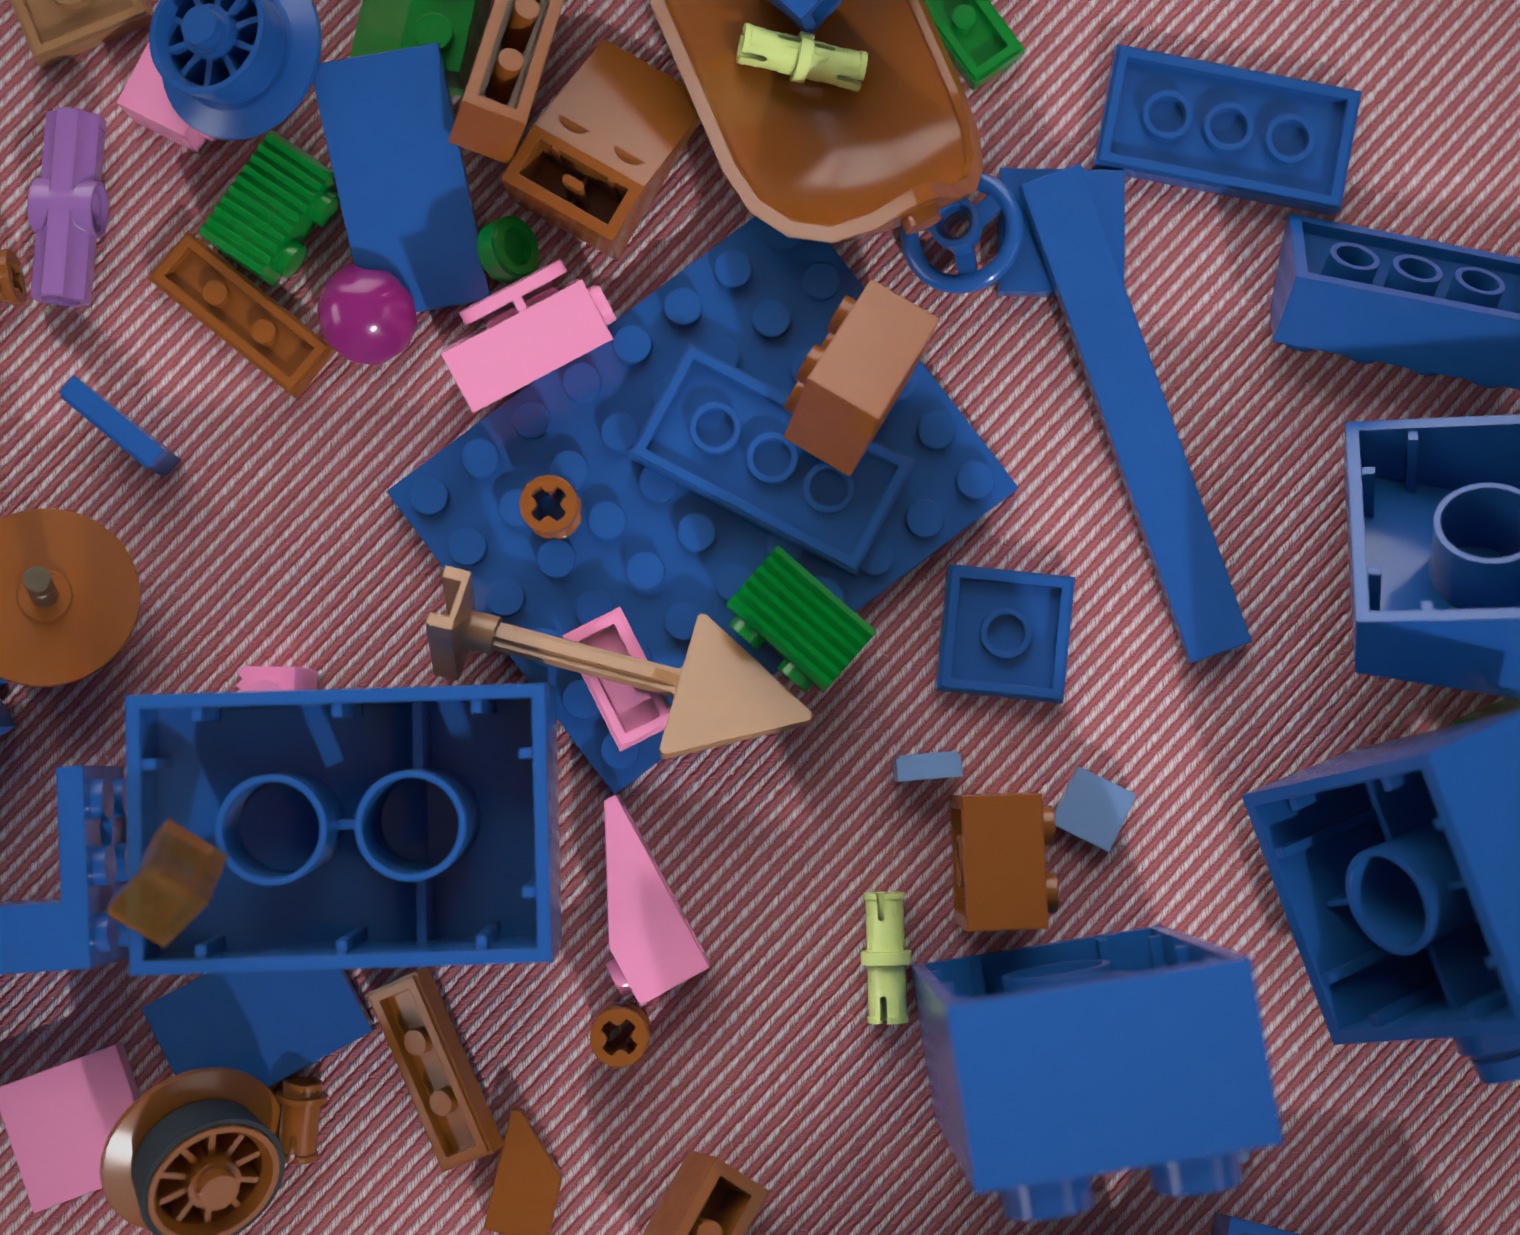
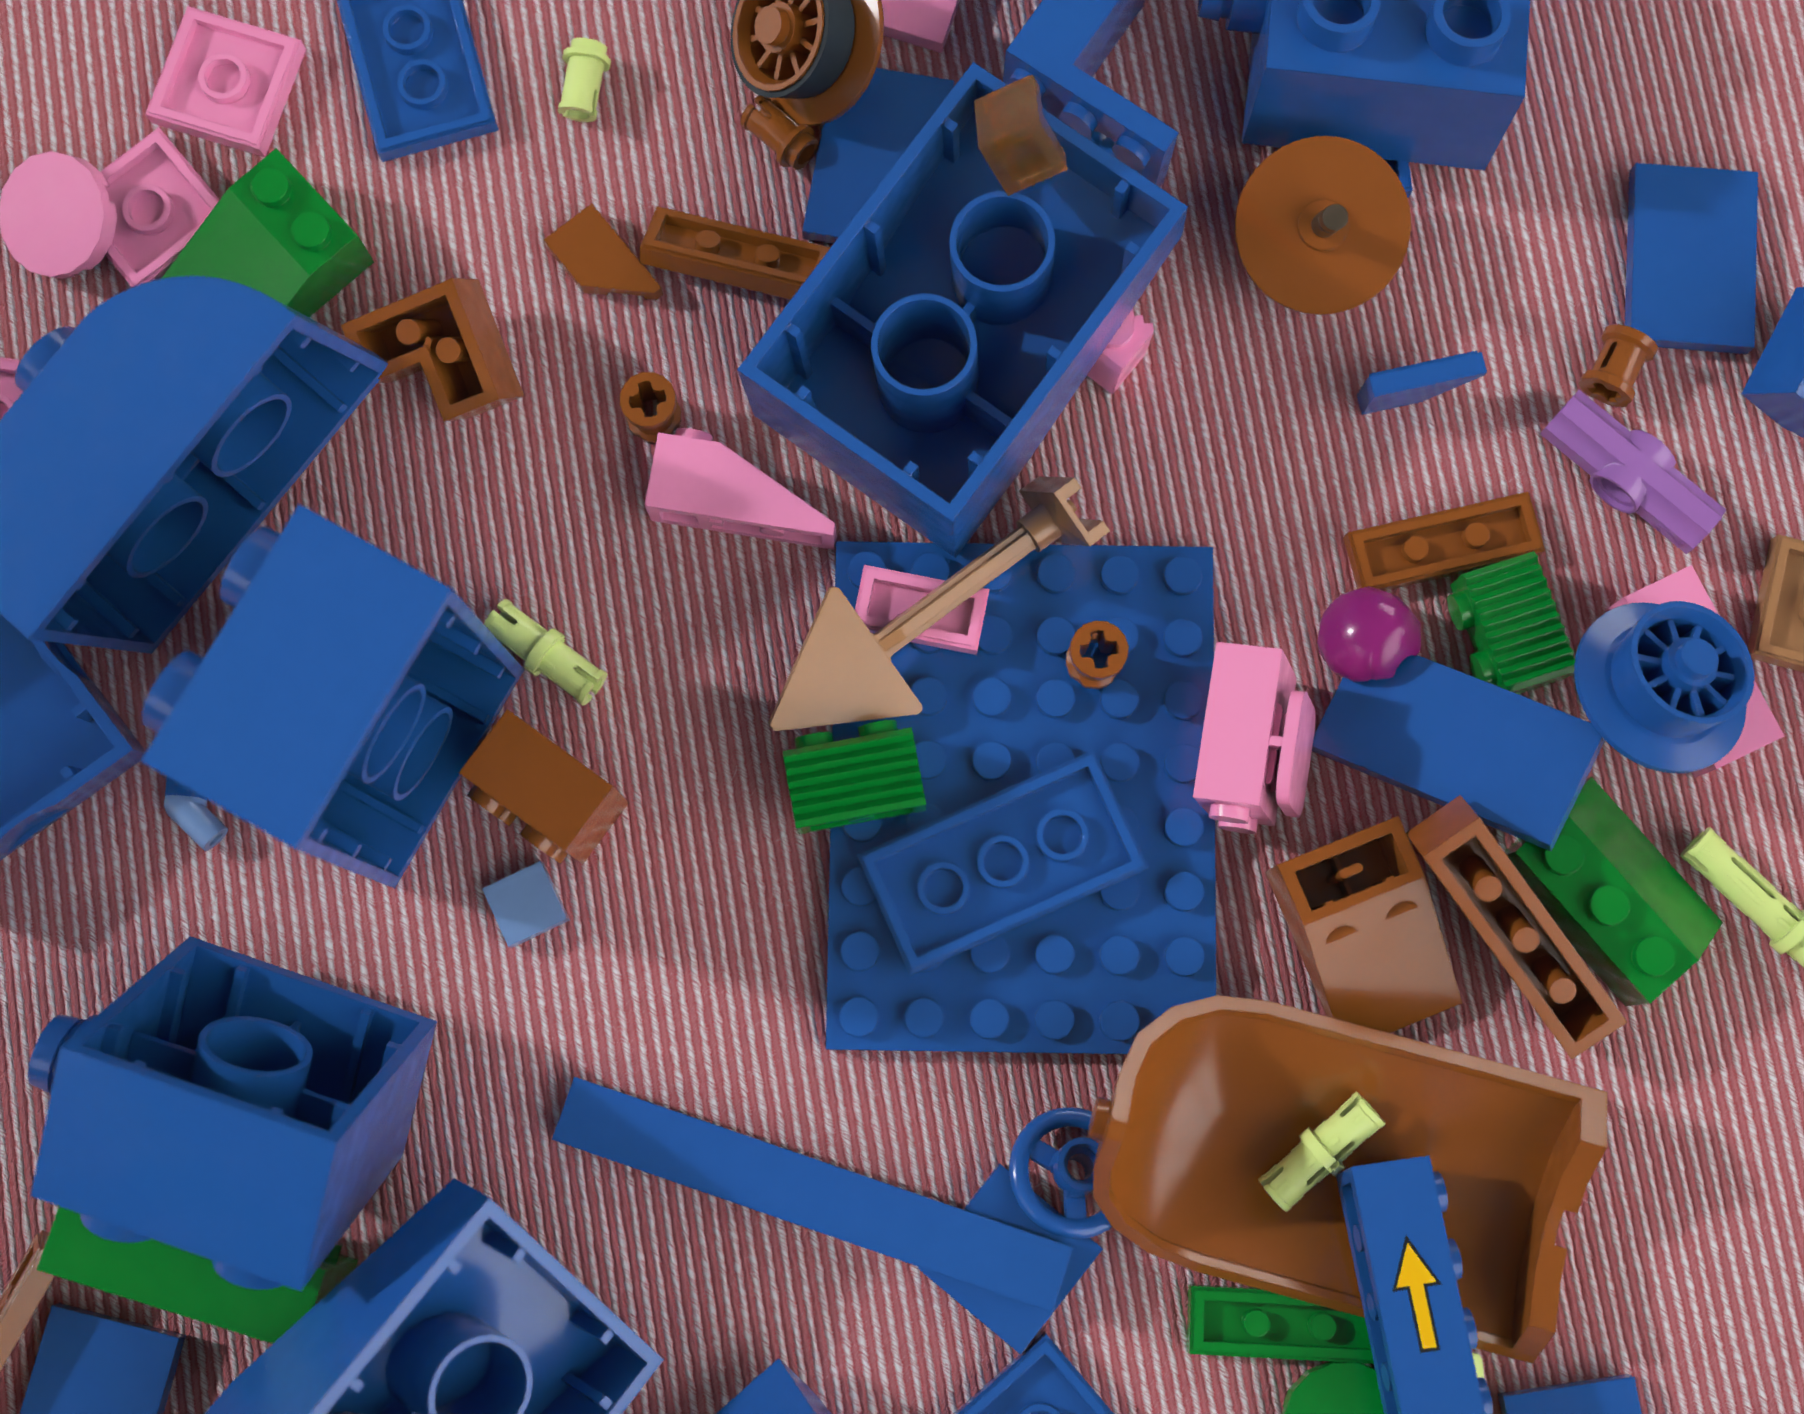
camera: 130 degrees right, 5 degrees down
(507, 249) = (1339, 788): green tile -> none
(856, 375) = (1009, 970): brick -> none
(927, 766) = (663, 796): medium blue tile -> none
(1004, 633) = (718, 946): blue tile -> none

